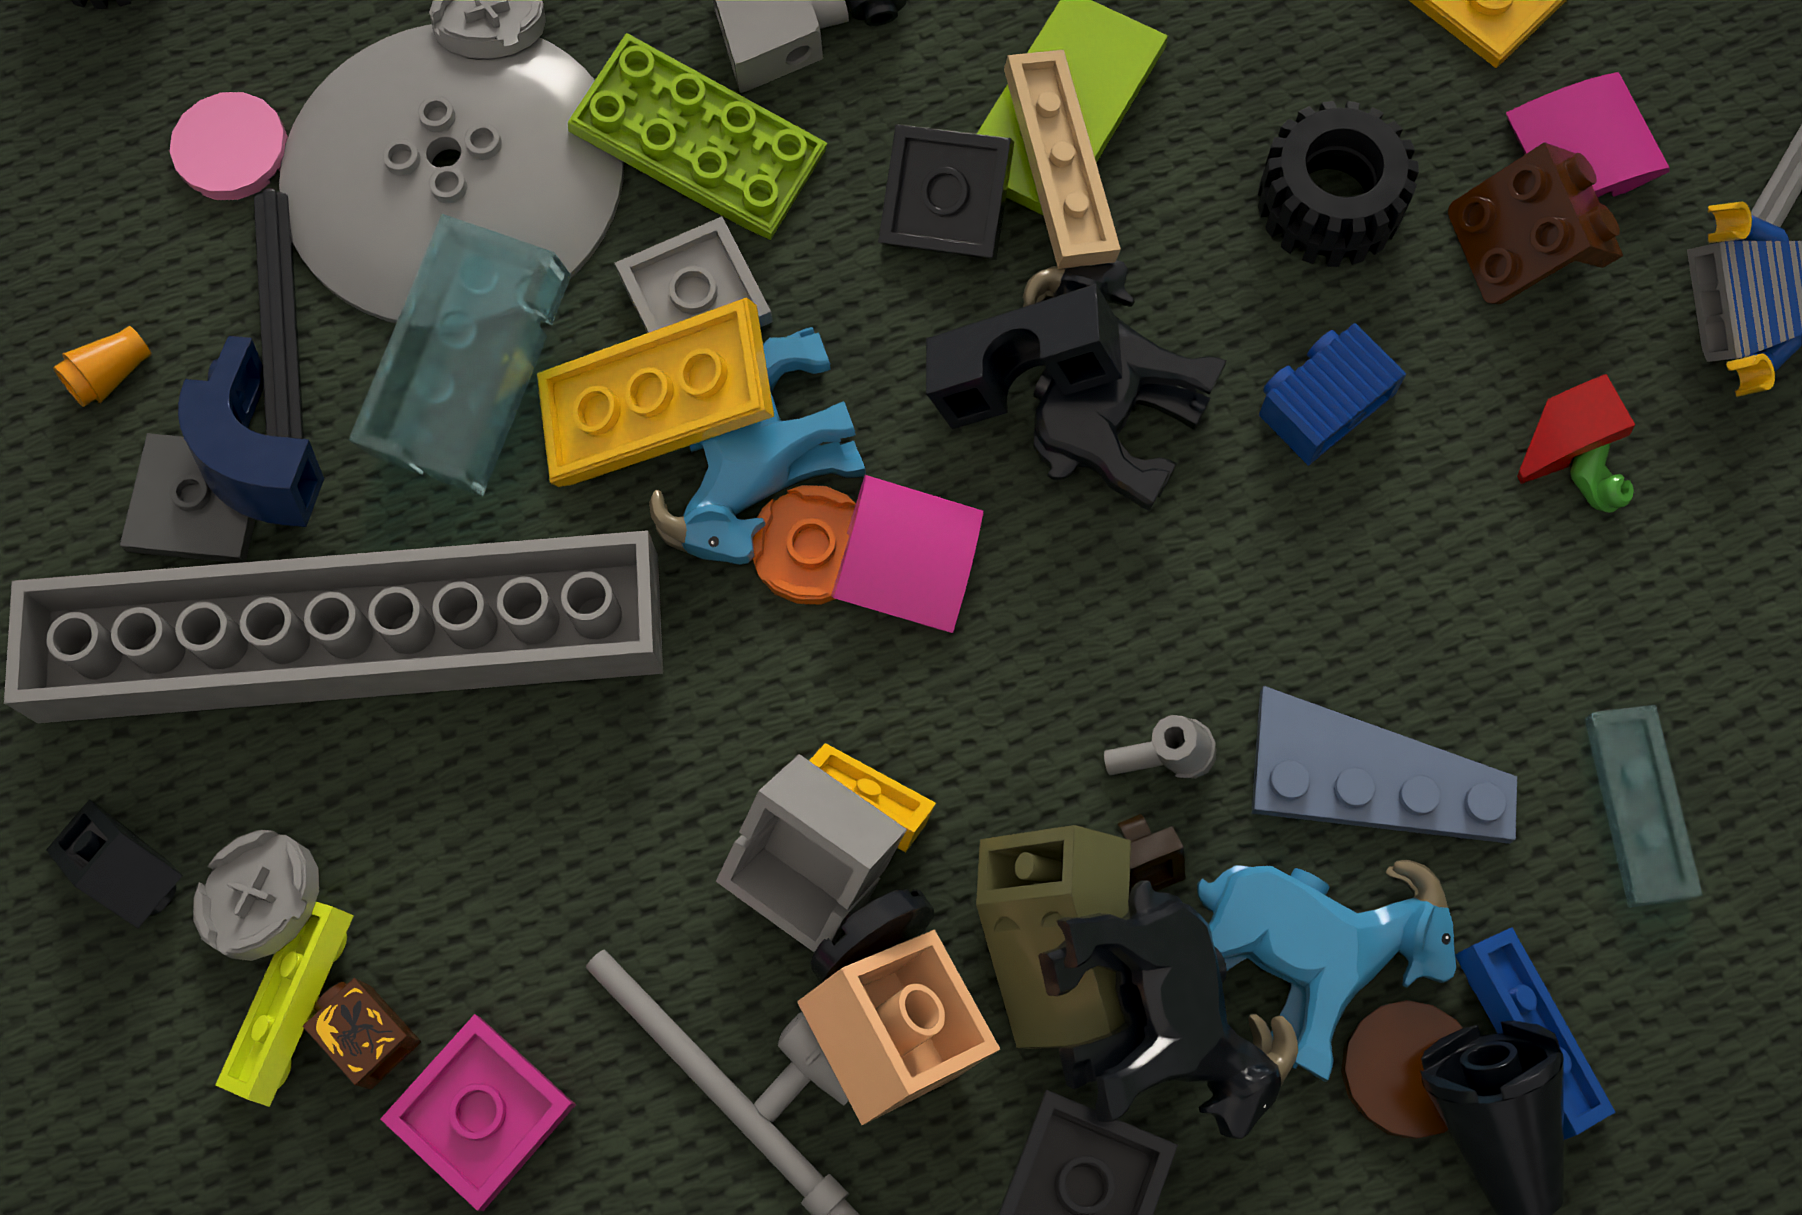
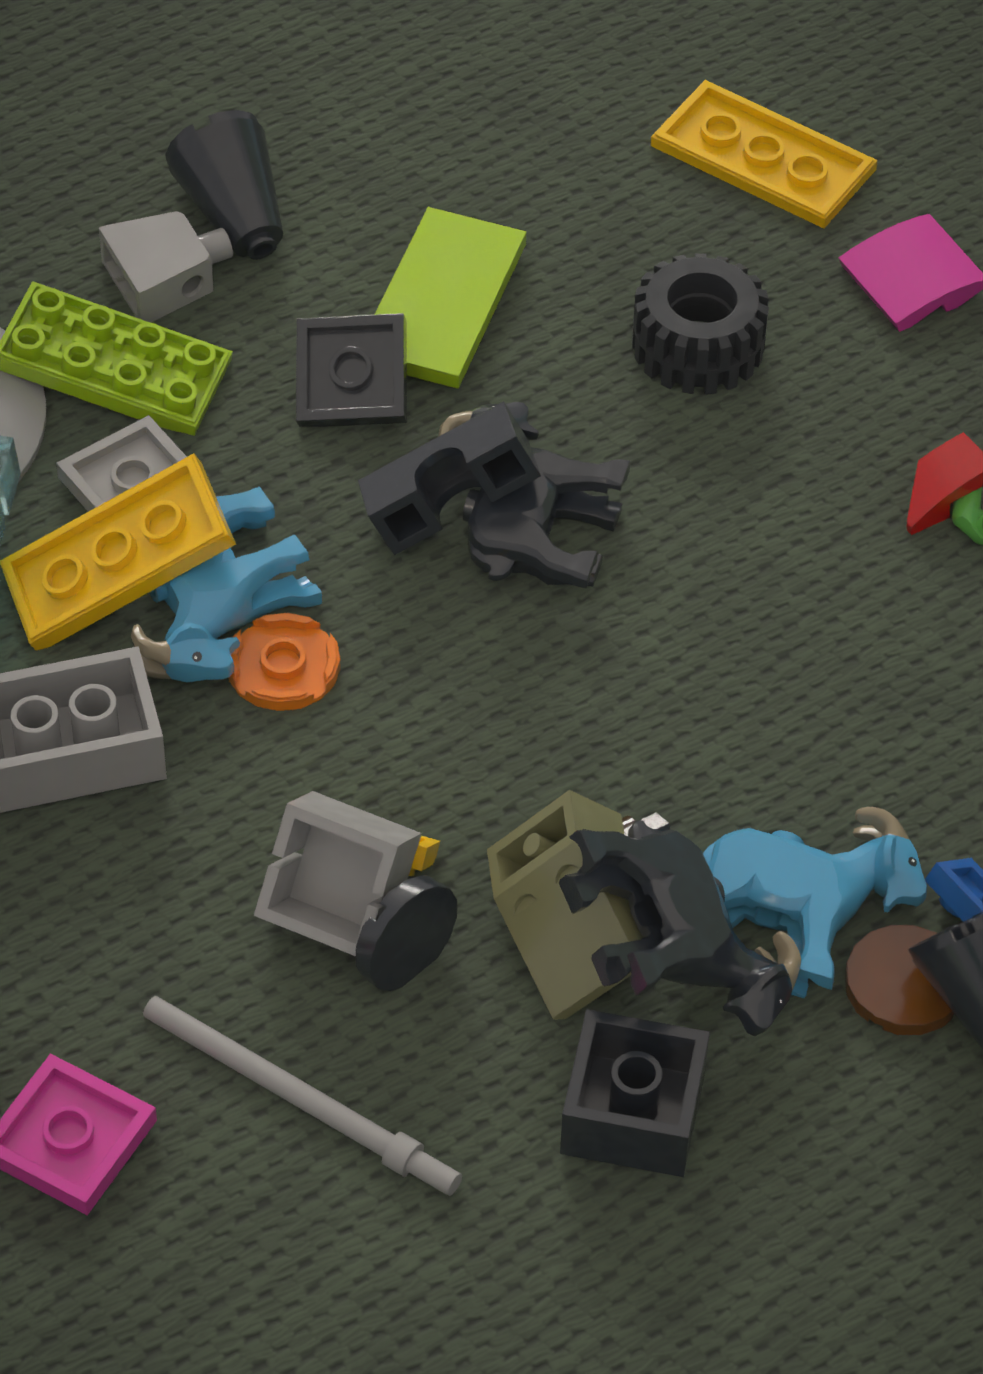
camera: 15 degrees left, 20 degrees down
(806, 1065) = (375, 1041): light grey piece -> none
(897, 1025) = (443, 990): light nougat brick -> none
(908, 554) = (375, 650): dark pink slope -> none
(1061, 159) = (451, 328): tan plate -> none
(1176, 743) = (651, 760): light grey piece -> none
(1330, 392) = (727, 482): blue brick -> none
(1358, 774) = (812, 767): sand blue wing -> none
(1533, 222) = (876, 329): reddish brown bracket -> none

